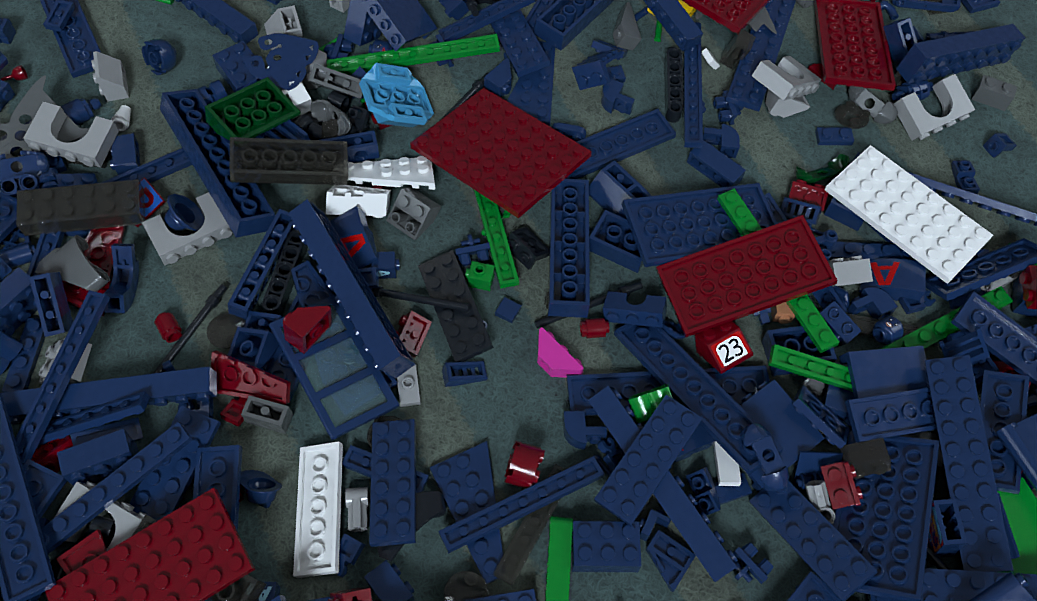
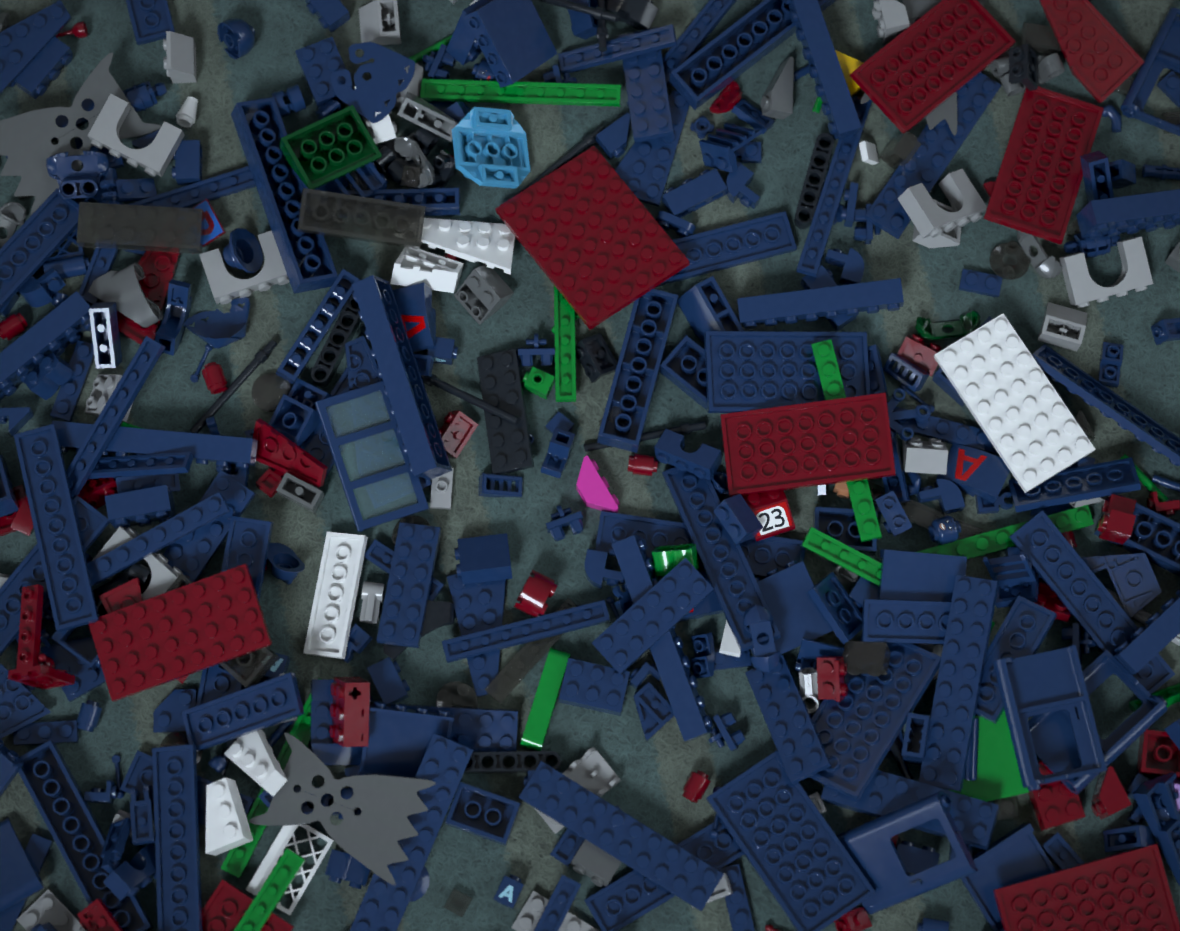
camera: 15 degrees right, 15 degrees up
(149, 332) = (194, 378): none -> dark blue hinge
(171, 284) = (220, 327): none -> dark blue piece
(306, 326) = (350, 416): dark red slope -> none
(464, 441) = (483, 559): none -> dark blue brick
(513, 330) = (558, 453): none -> dark blue brick
(533, 390) = (556, 527): none -> dark blue hips
(568, 62) = (702, 121): none -> dark blue plate
(580, 107) = (694, 193): none -> dark blue brick
(584, 40) = (727, 99): none -> dark red plate
(701, 353) = (738, 519): none -> dark blue brick
(709, 101) = (850, 196): none -> dark blue plate
(714, 164) = (820, 303): none -> dark blue brick
(917, 155) = (1063, 326): none -> light grey slope

